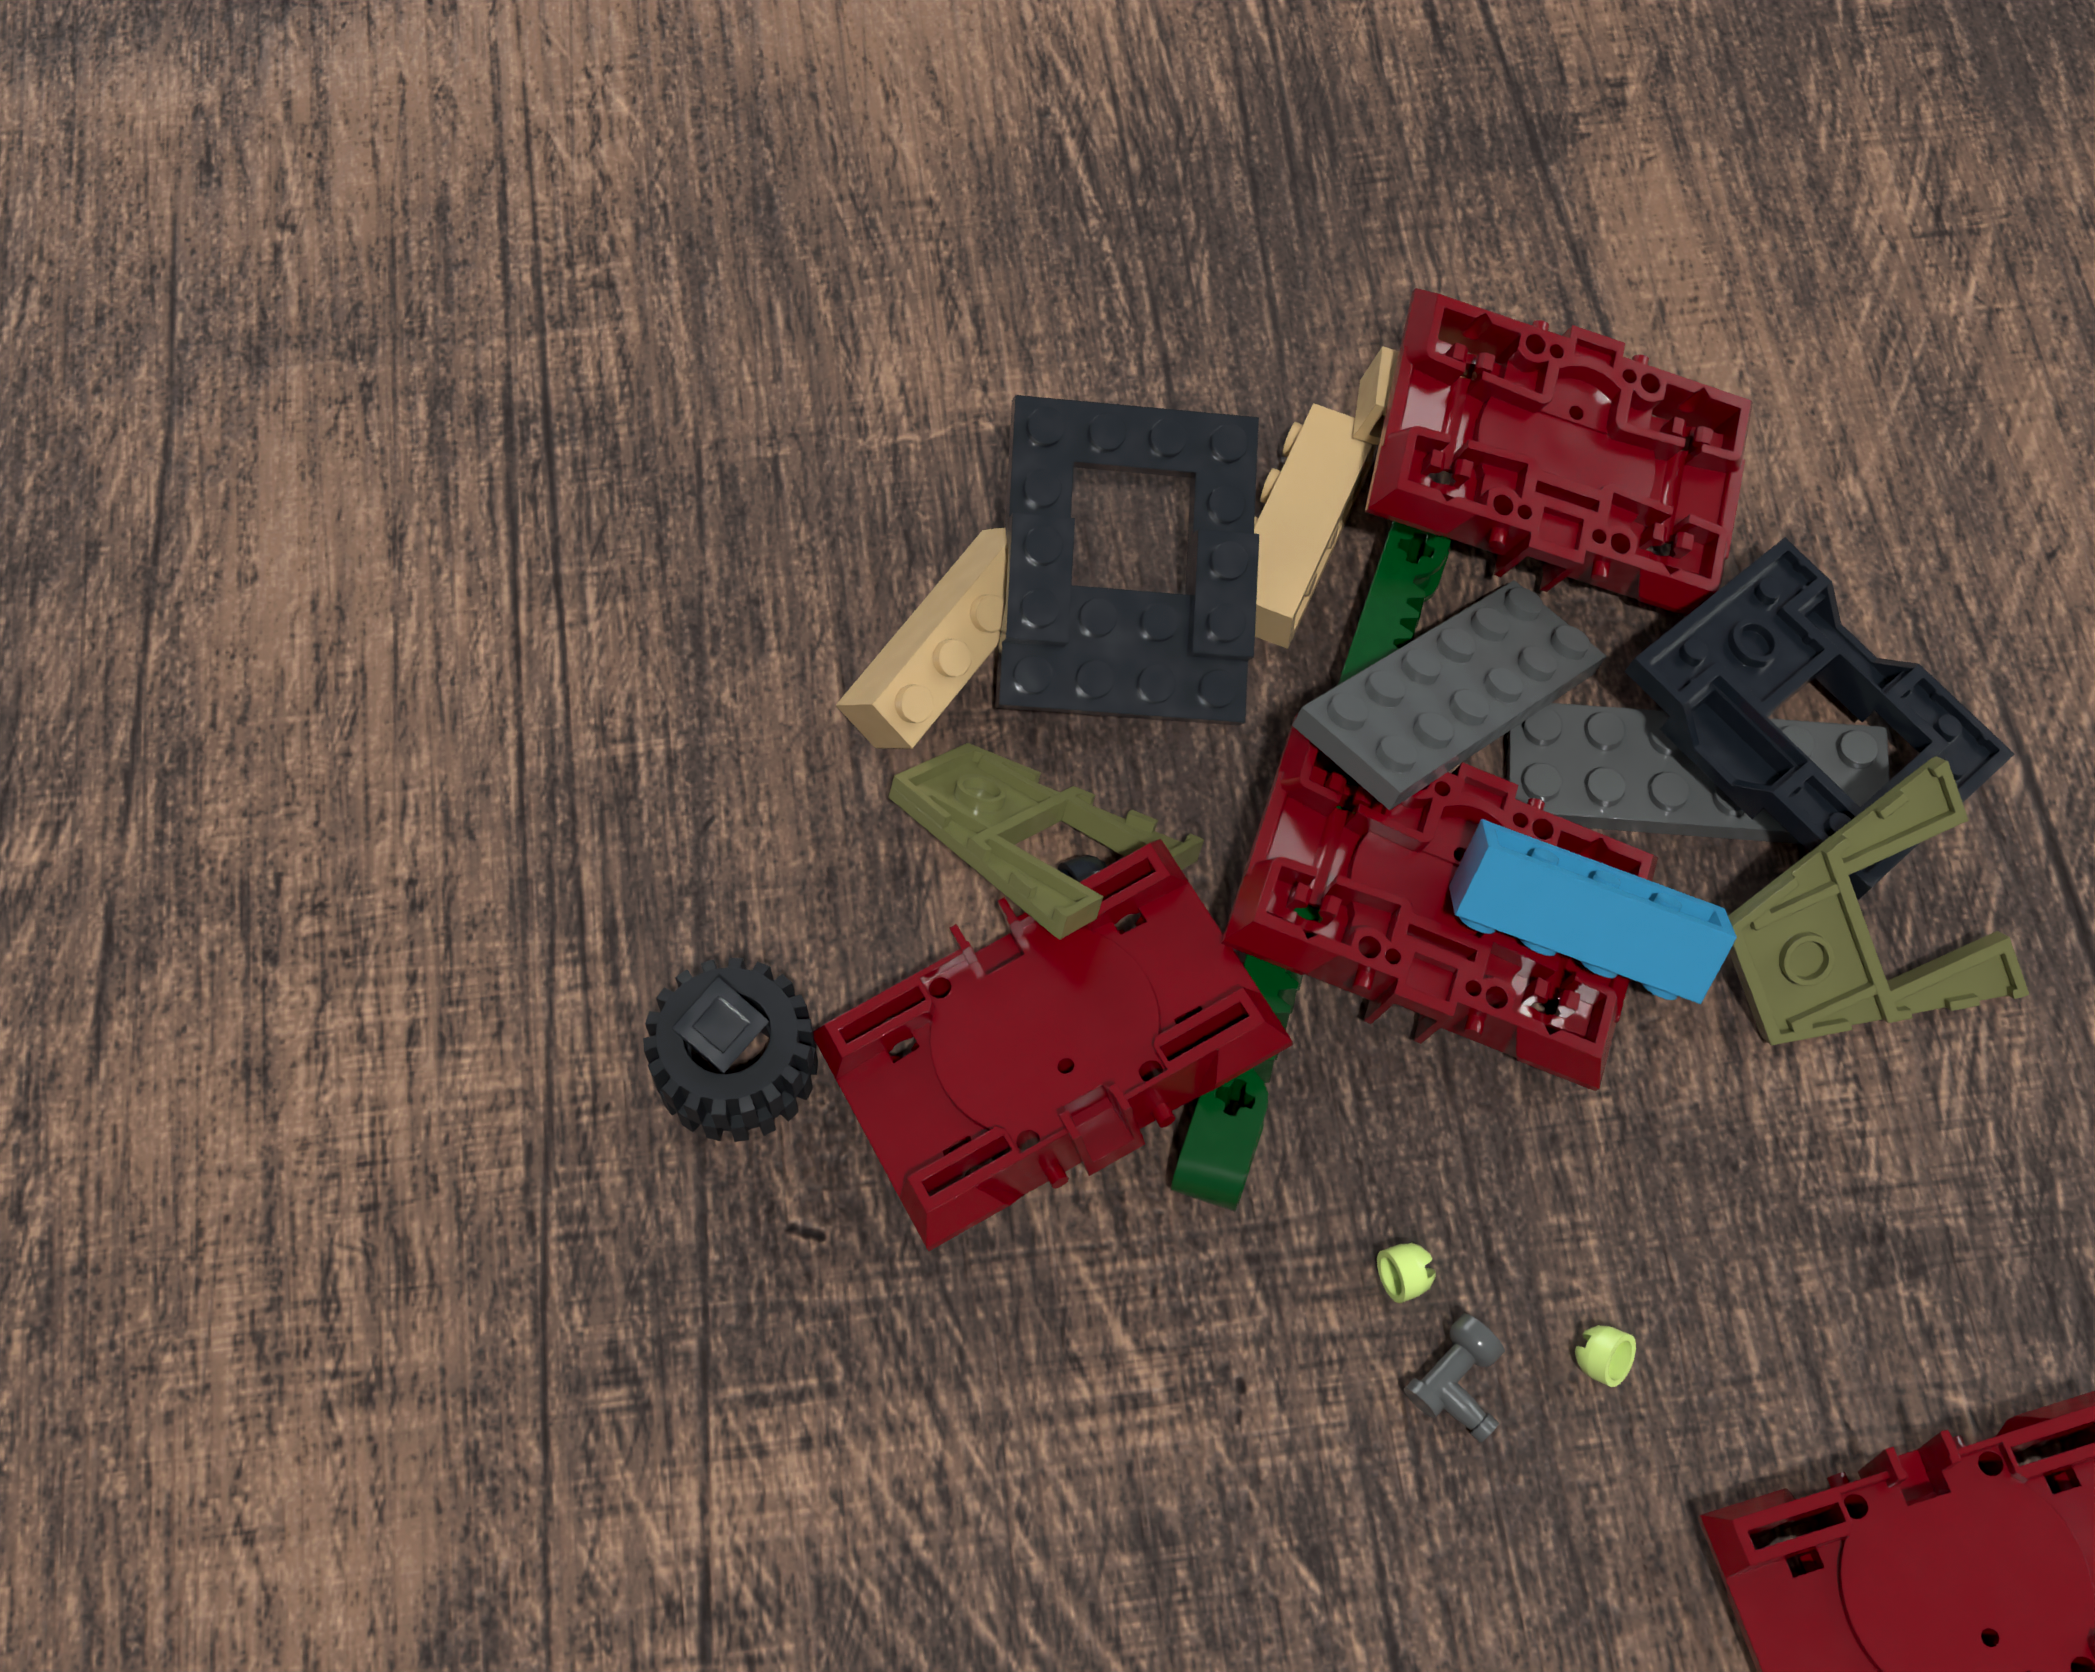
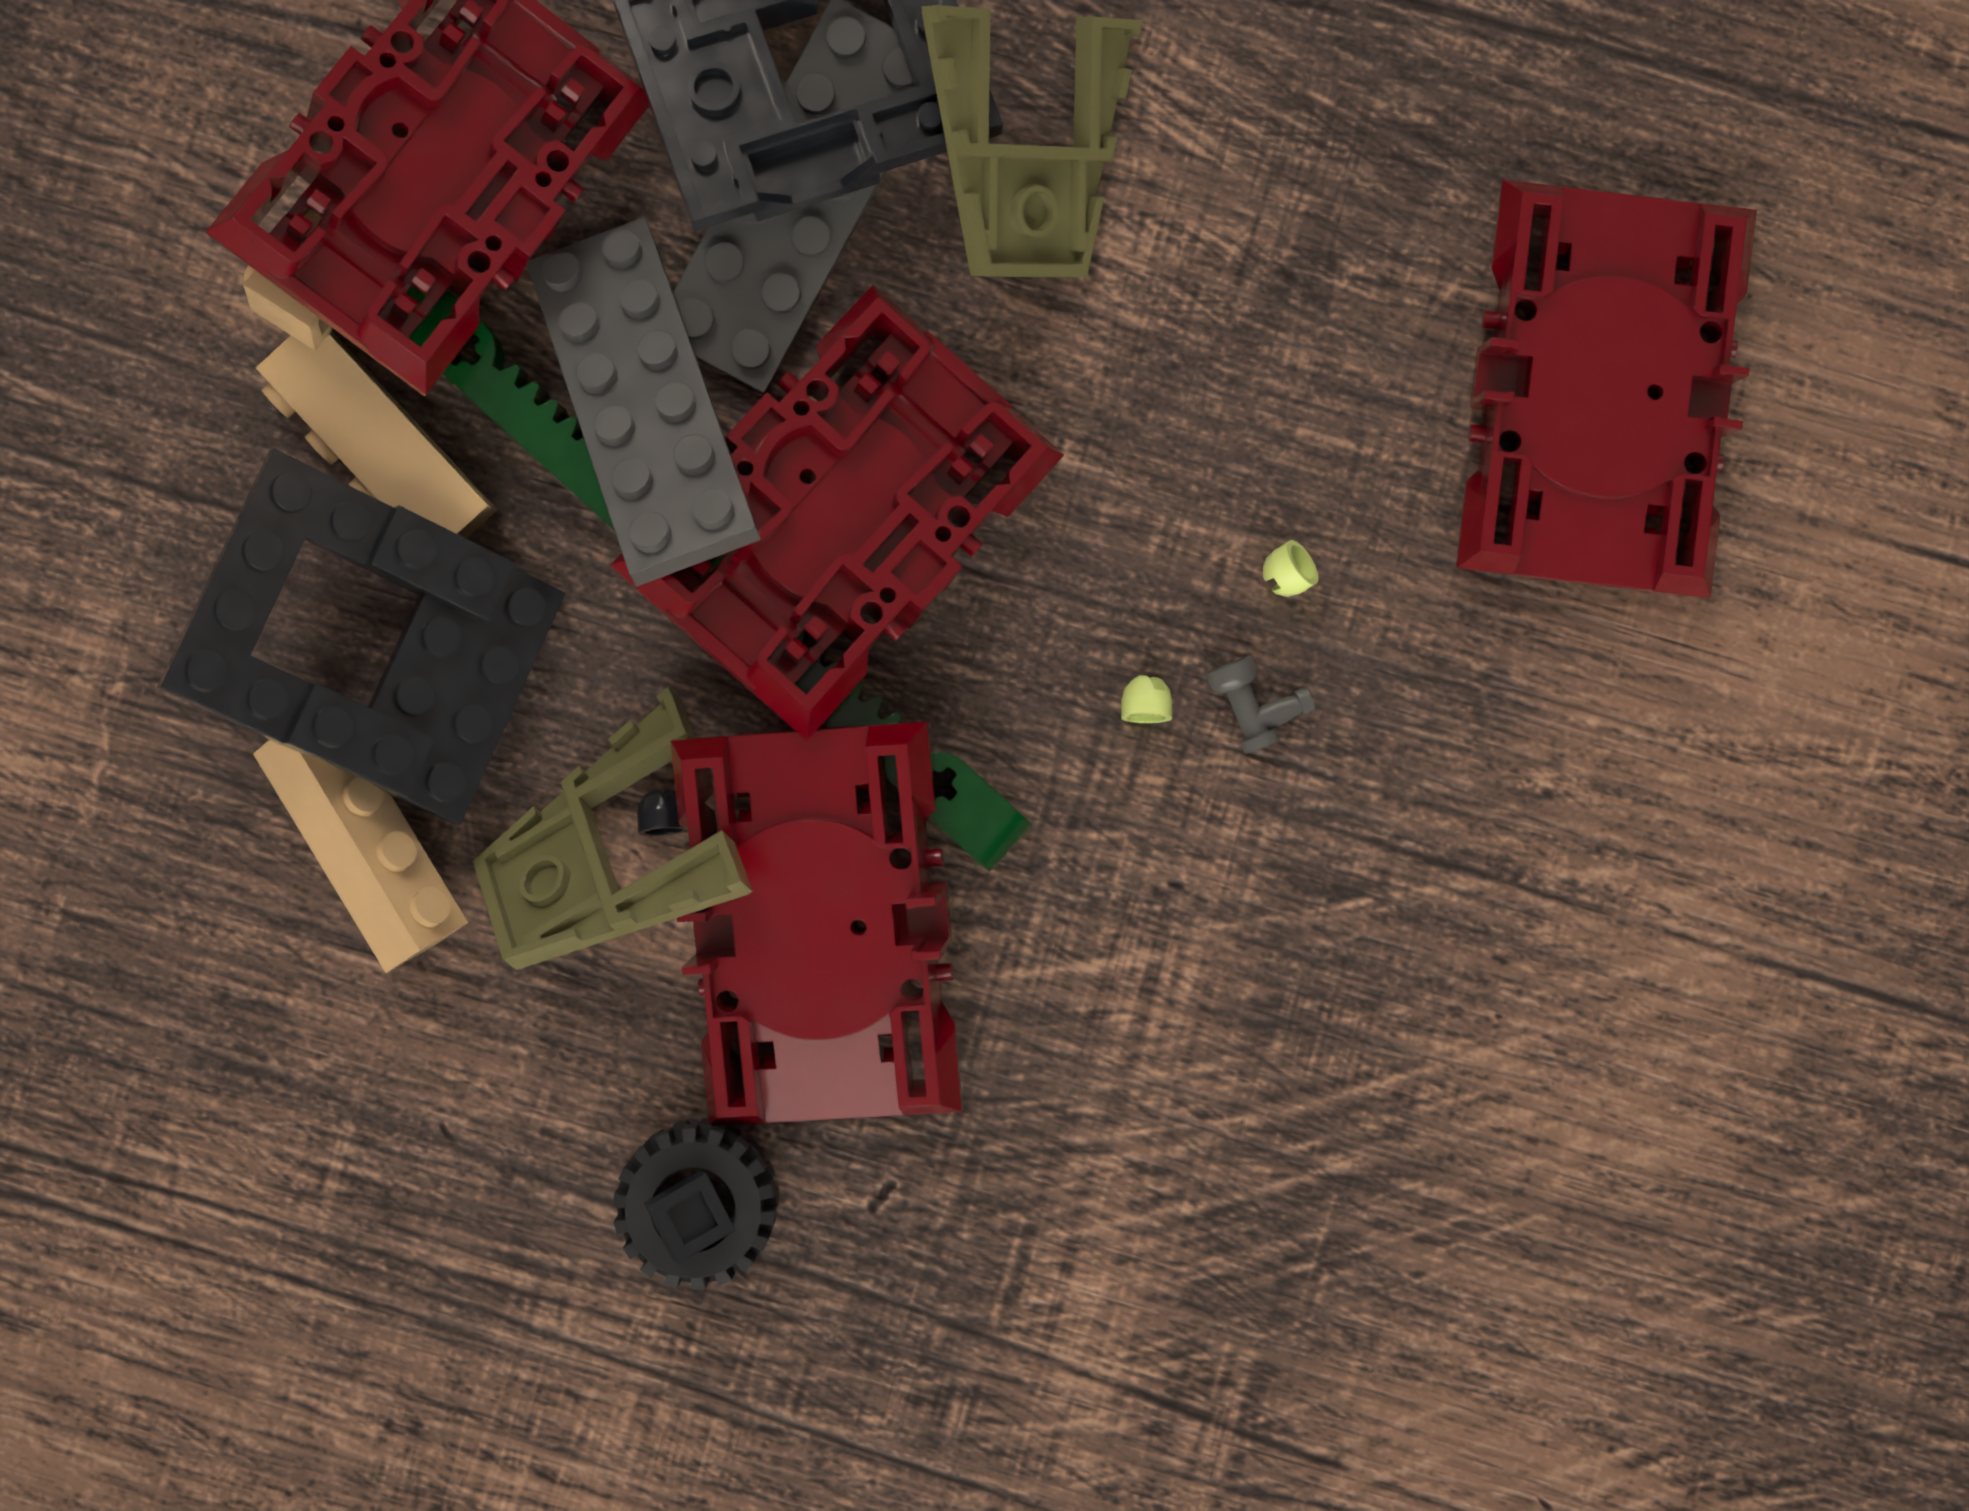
camera: 65 degrees left, 25 degrees up
(1590, 913) = (919, 393): dark azure brick -> none

